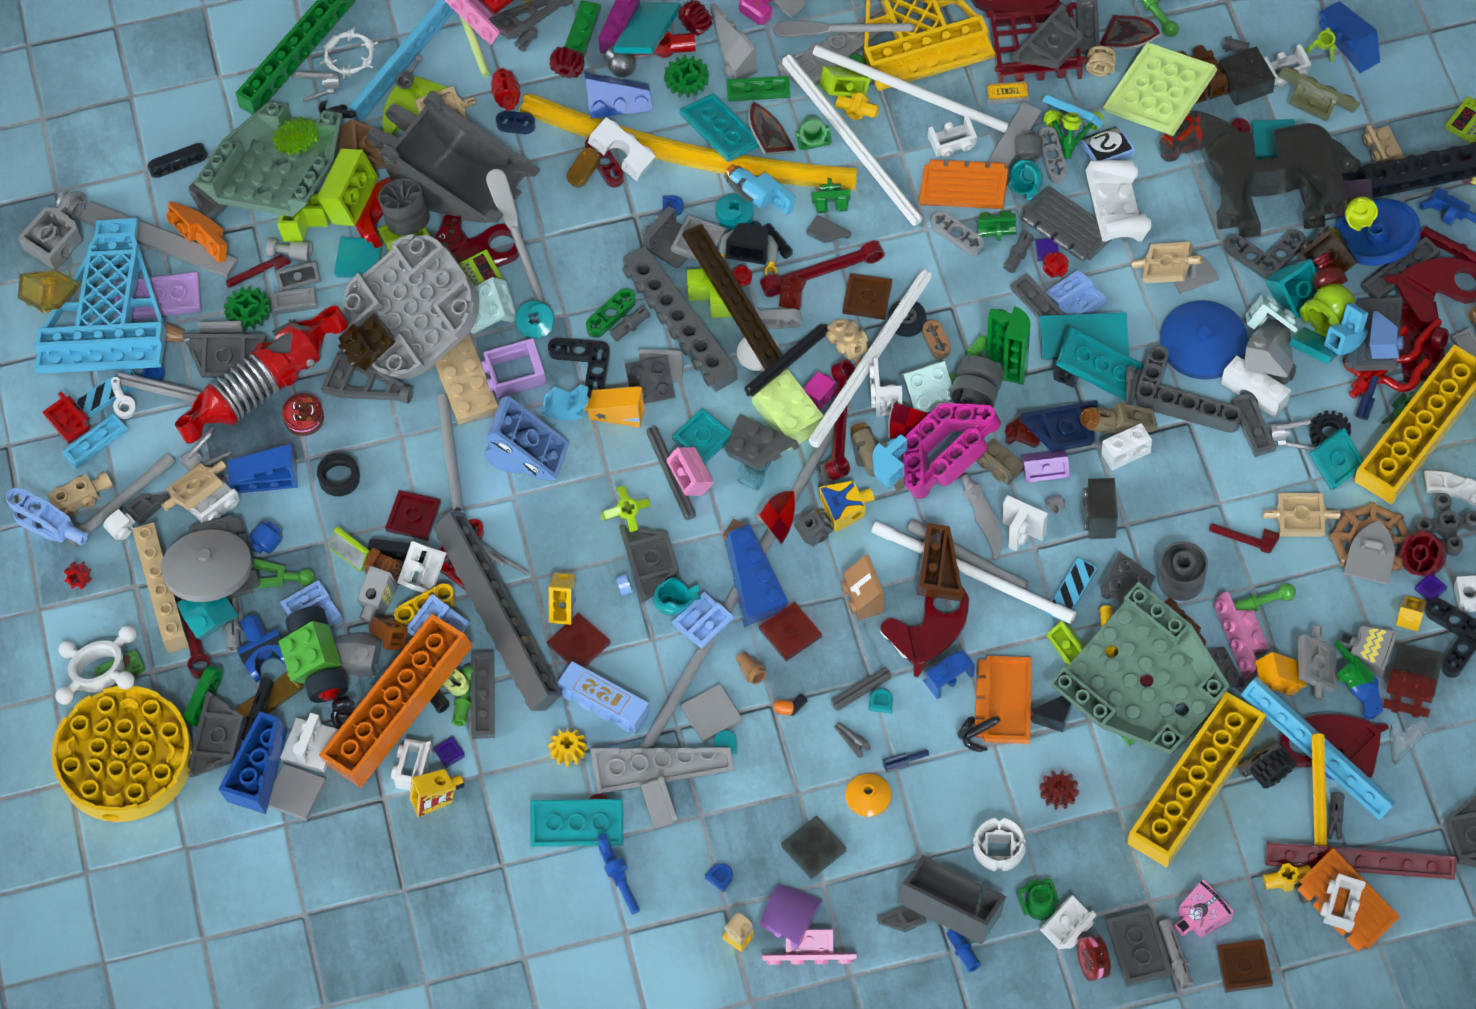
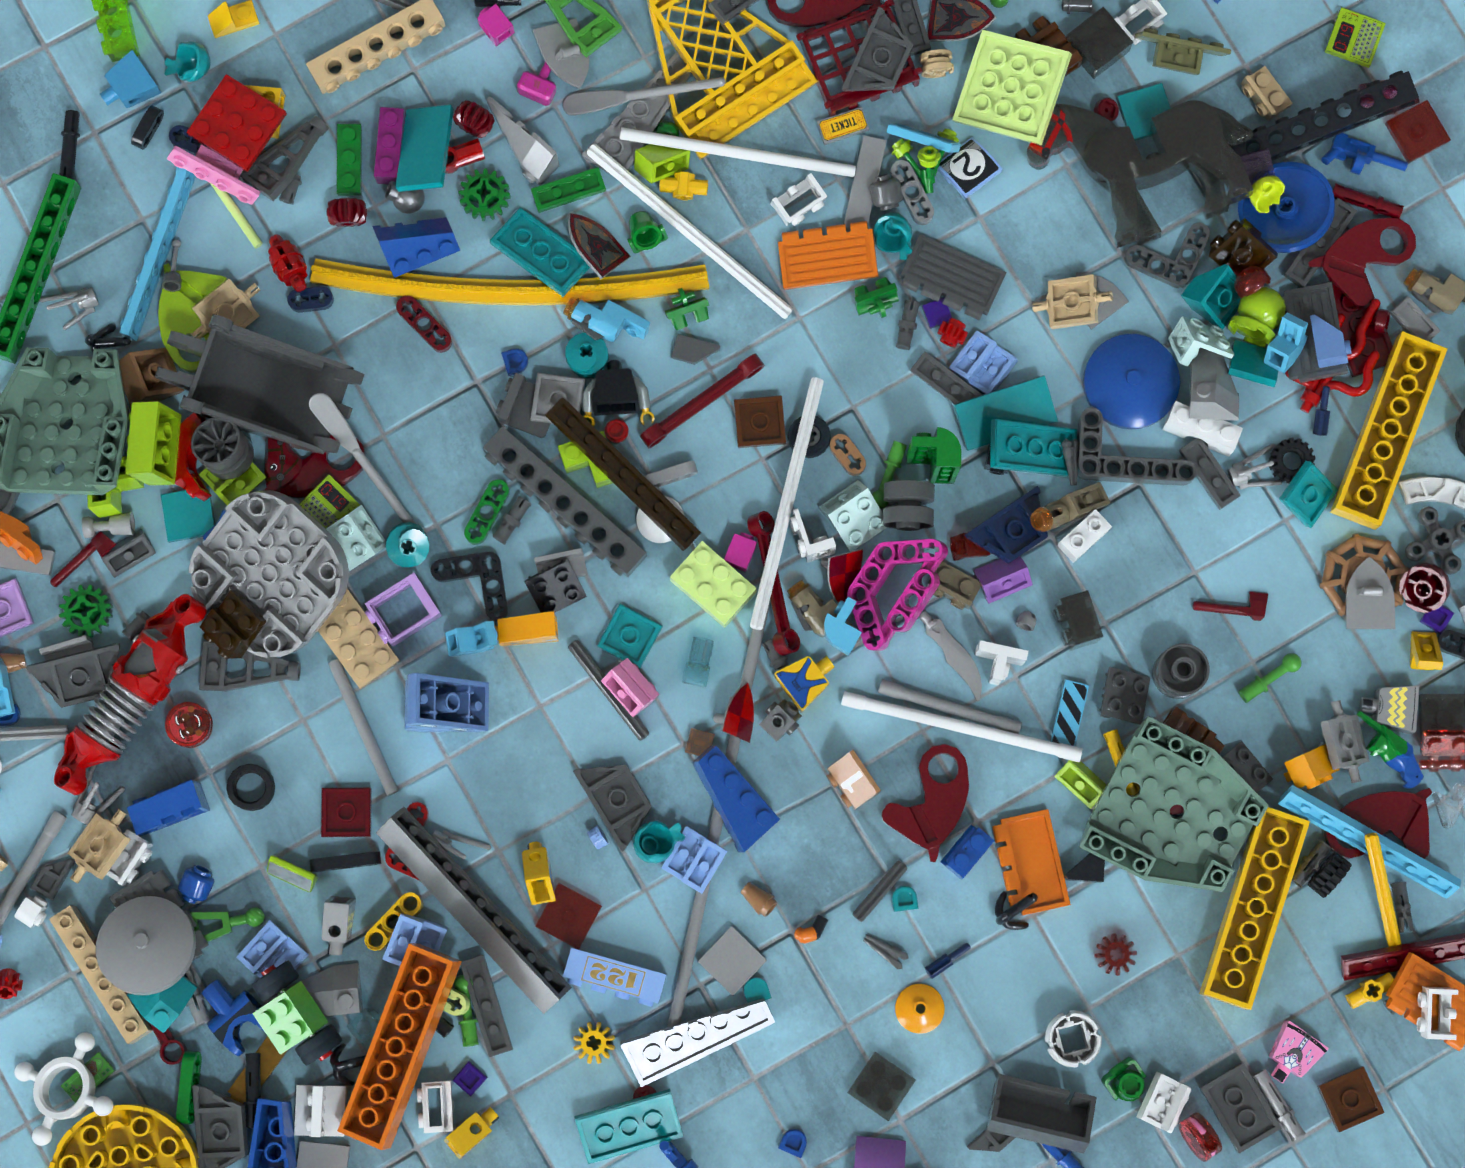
camera: 20 degrees left, 20 degrees up
(295, 135) = (70, 393): clear neon green gear -> none
(295, 300) = (134, 585): light grey tile -> none
(350, 34) = (72, 250): white piece -> none
(384, 563) = (337, 884): dark orange leg -> none
(389, 631) = (365, 964): dark orange leg -> none
(427, 571) = (383, 886): white window -> none
(583, 167) = (403, 339): pearl gold tile -> none
(610, 135) = (461, 314): white arch -> none
(626, 508) = (576, 753): lime piece -> none
(658, 803) = (707, 1082): light grey panel -> none
(756, 443) = (692, 637): dark grey wing -> none
(785, 250) = (654, 385): black axle -> none
(786, 360) = (697, 530): black axle -> none
(790, 631) = (788, 845): clear red plate -> none
(792, 292) = (678, 439): clear red bracket -> none
(848, 339) = (758, 487): tan brick -> none
(938, 566) = (926, 736): reddish brown wedge -> none
(953, 224) = (816, 316): light grey beam -> none
(1115, 200) = (997, 237): white piece -> none
(1242, 634) = (1258, 724): bright pink bracket -> none
(1301, 514) = (1285, 567): tan plate -> none
(1323, 260) = (1241, 263): dark red bush -> none
(1399, 406) = (1359, 412): dark green plate -> none

